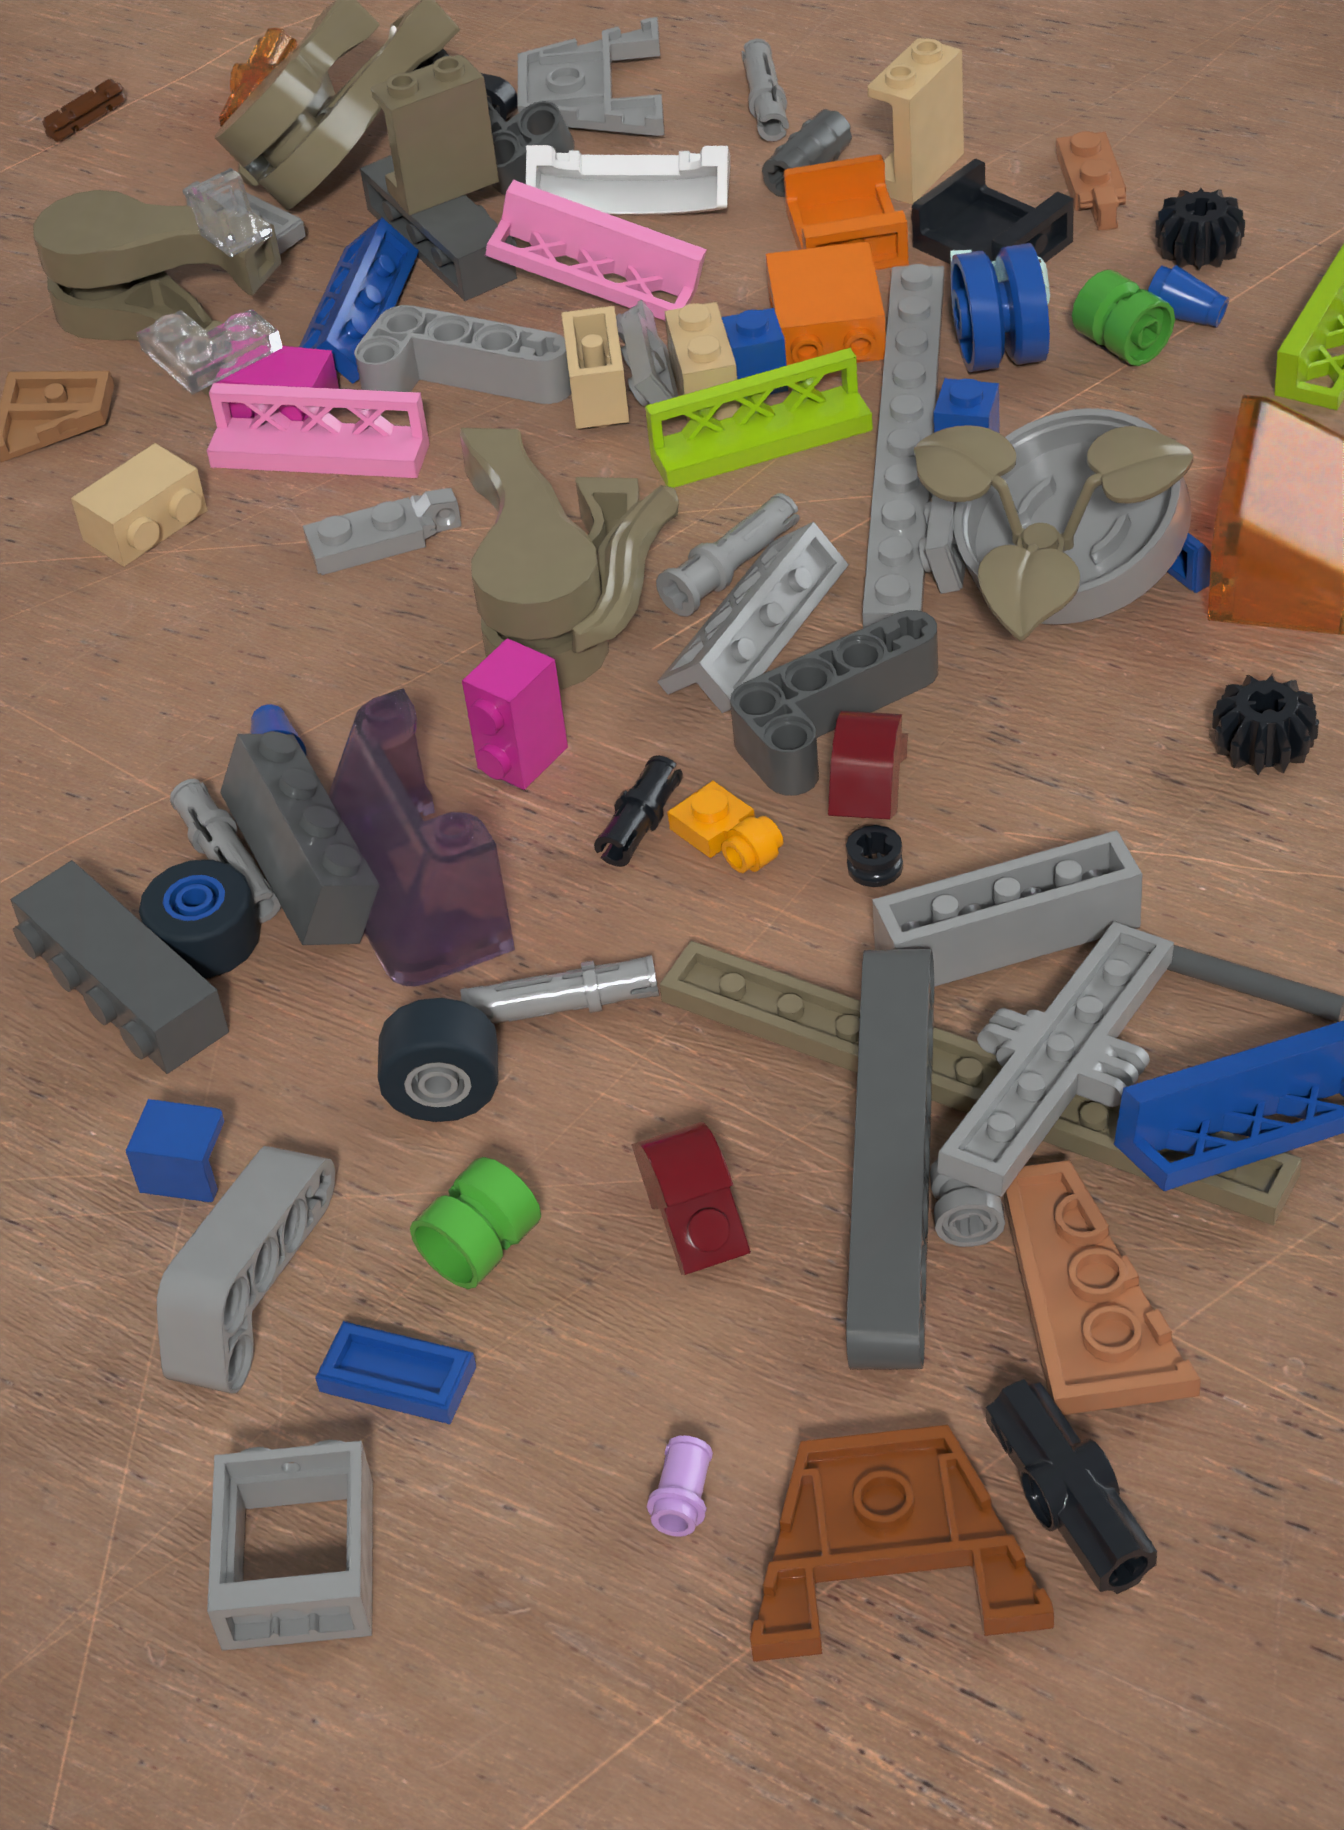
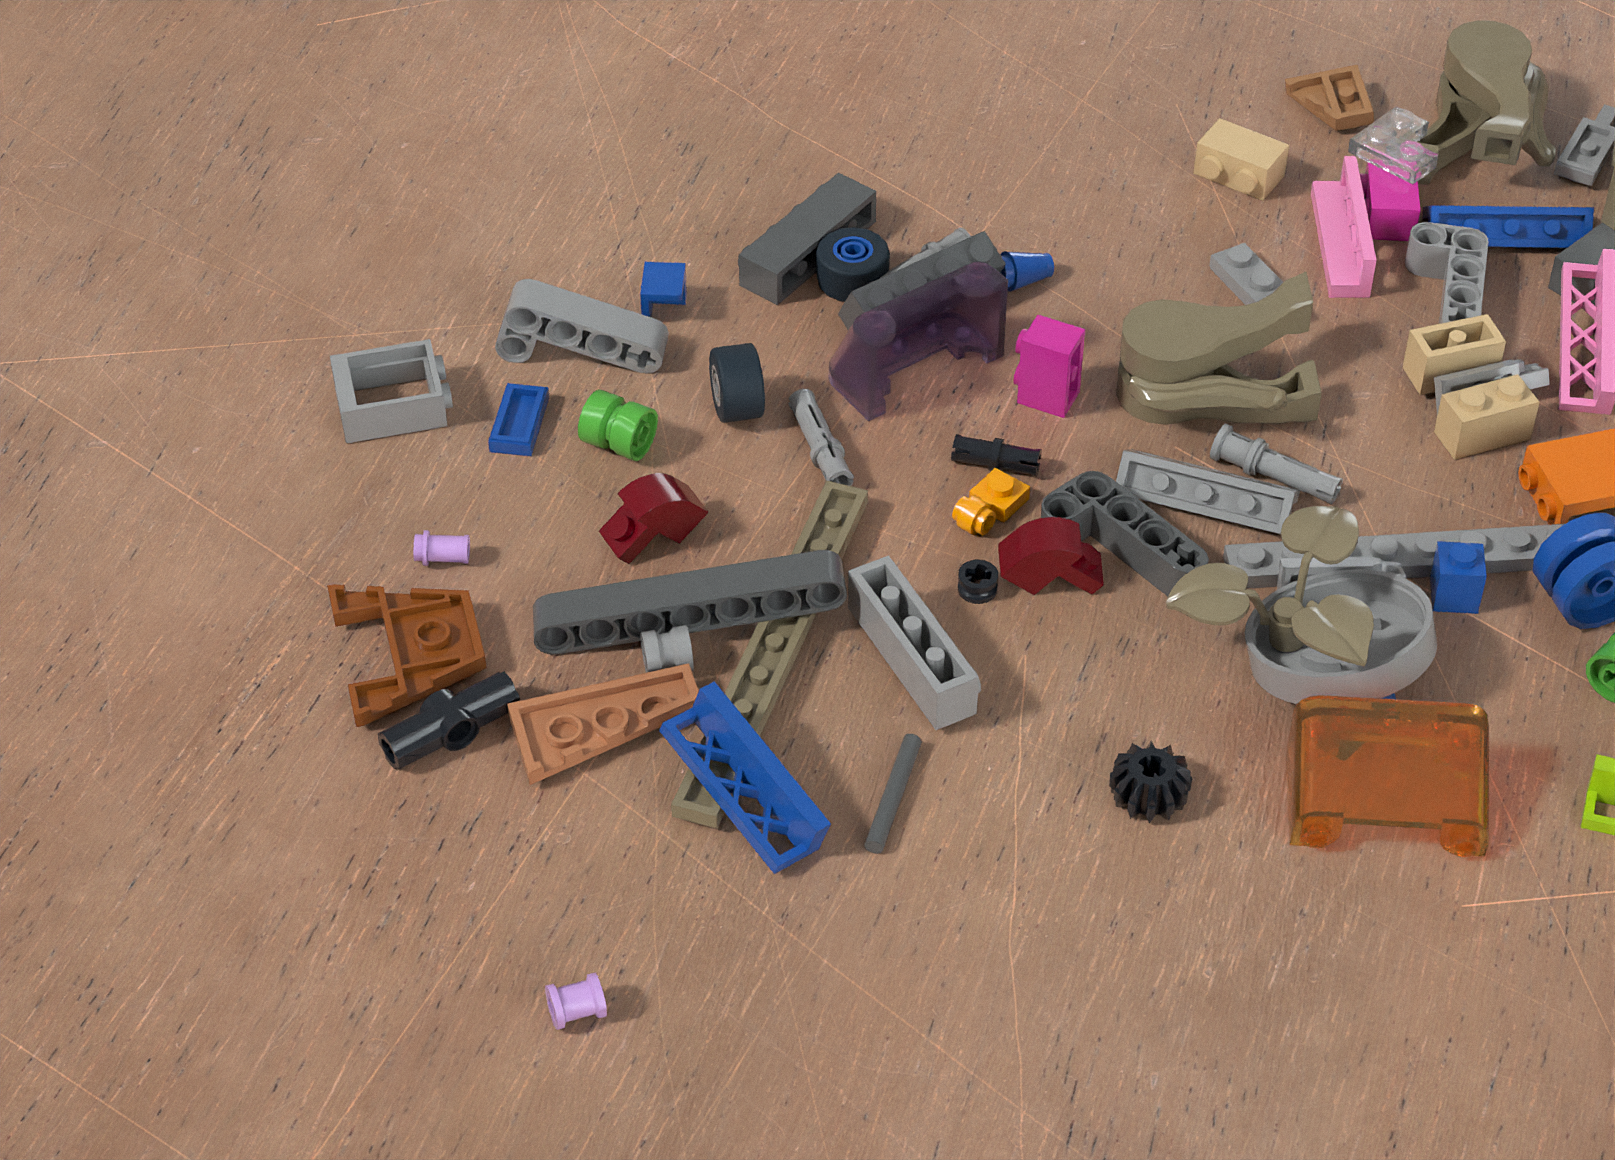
camera: 75 degrees right, 0 degrees up
(226, 214) = (1503, 104): clear panel -> none
(756, 342) = (1504, 443): blue brick -> none
(756, 429) = (1428, 465): lime fence -> none
(1056, 1057) = (777, 674): light grey hinge -> none

